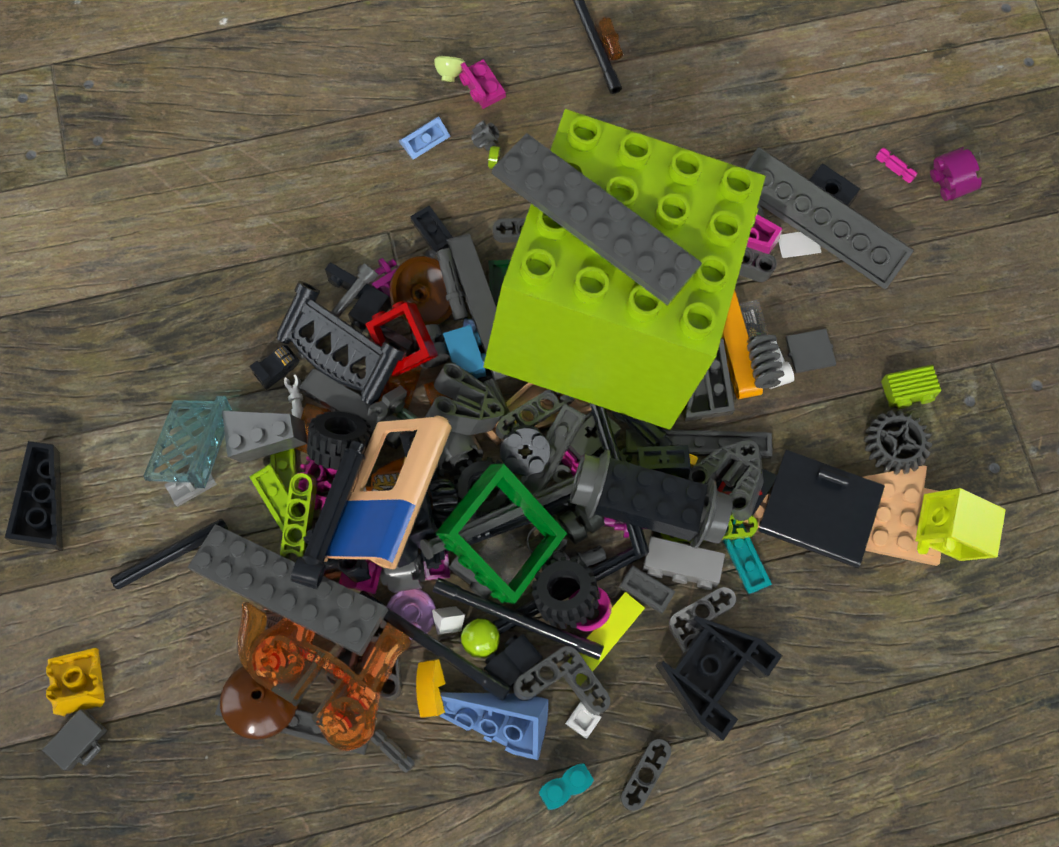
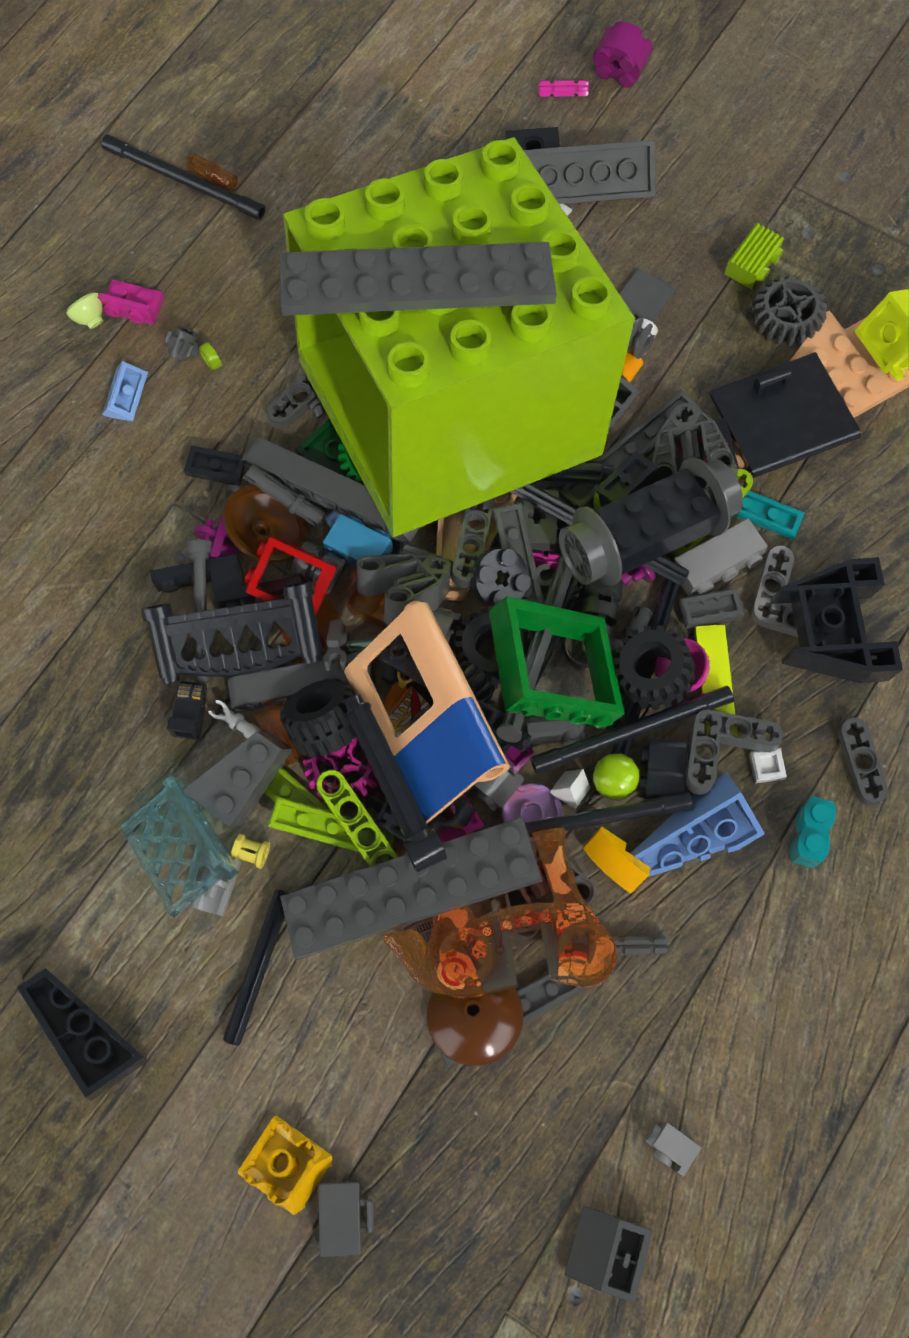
camera: 40 degrees left, 0 degrees up
(229, 482) = (242, 843): none -> light yellow bush

